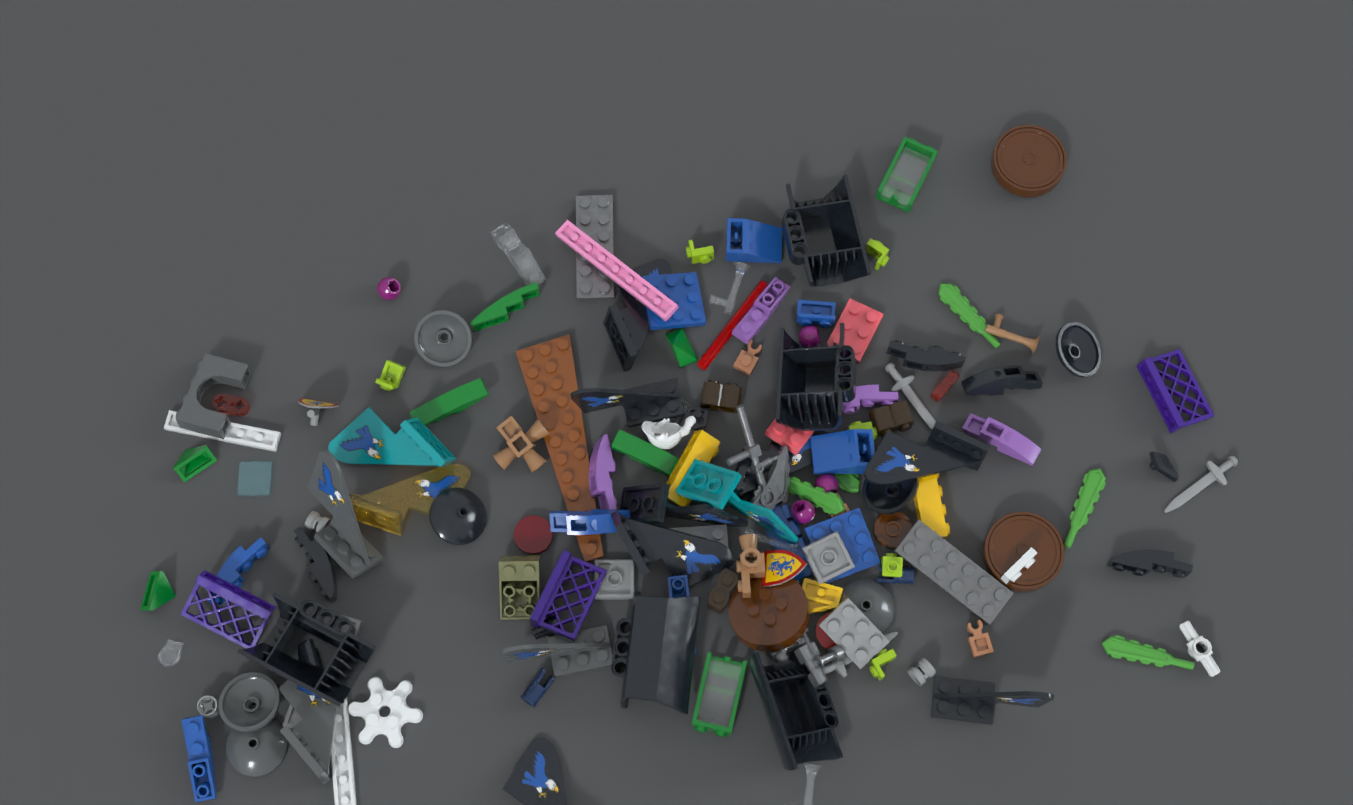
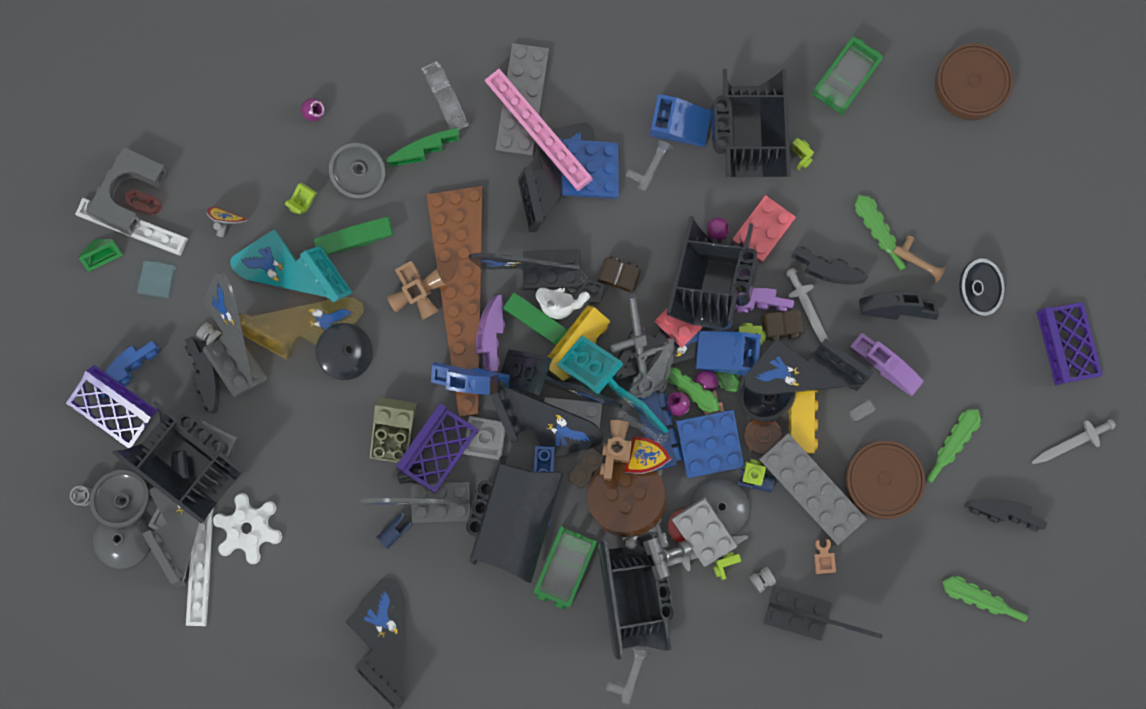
camera: 10 degrees right, 10 degrees up
(157, 591) = (48, 376): green slope -> none
(170, 653) = (53, 437): clear animal -> none
(200, 758) = (67, 543): blue slope -> none
(533, 535) = (413, 381): dark red tile -> none
(681, 347) = (589, 217): green slope -> none
(700, 255) = (627, 126): lime bracket -> none
(726, 333) = (644, 203): red axle -> none
(747, 360) = (651, 241): nougat plate -> none
(761, 311) = (675, 193): medium lavender slope -> none
(816, 313) = (729, 205): blue bracket -> none
(822, 596) = (680, 489): yellow wing -> none
(828, 557) = (693, 454): light grey tile -> none
(944, 386) = (842, 301): clear red beam -> none
(986, 489) = (862, 411): none -> clear piece
(1014, 572) = (871, 501): white plate -> none
(1162, 464) = (1040, 417): black piece -> none
(1205, 657) = (1039, 613): white axle -> none

